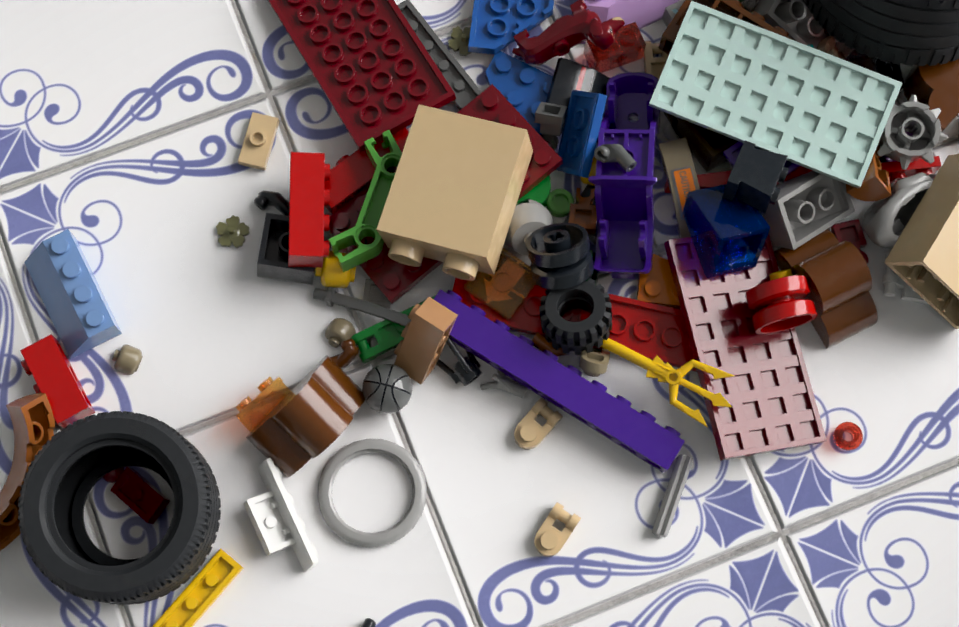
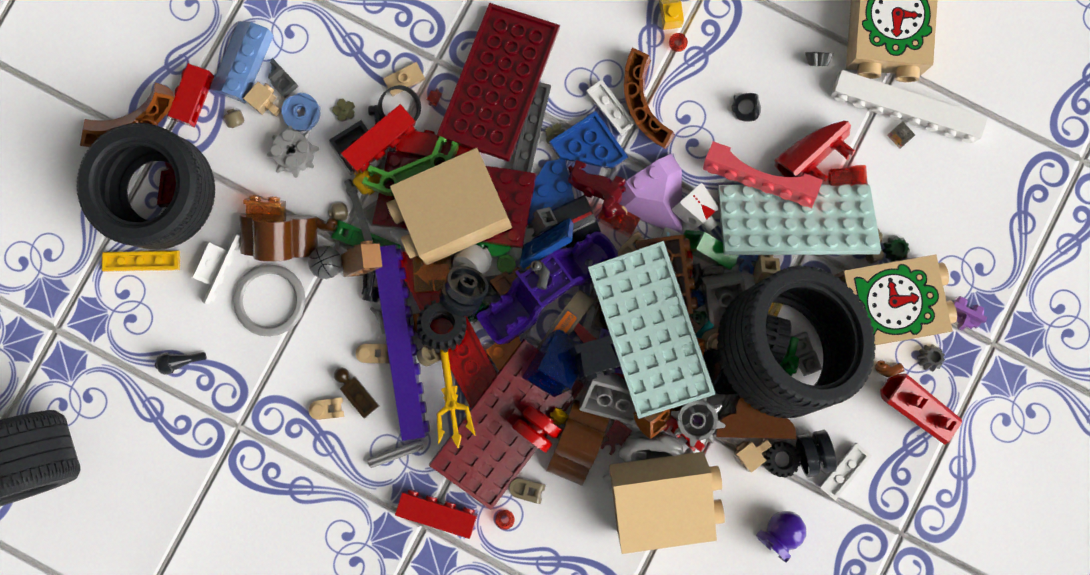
camera: 55 degrees right, 10 degrees up
(135, 271) = (281, 80): none -> dark grey slope
(136, 306) = (262, 98): none -> tan brick
(186, 293) = (297, 102): none -> medium blue plate
(243, 325) = (285, 143): none -> light grey brick
(279, 143) = (407, 89): none -> black tyre
(309, 125) = (434, 97): none -> clear red plate
(566, 481) = (356, 392): none -> dark brown plate
(781, 505) = (436, 514): none -> red brick
(826, 388) = (519, 489): none -> dark tan plate

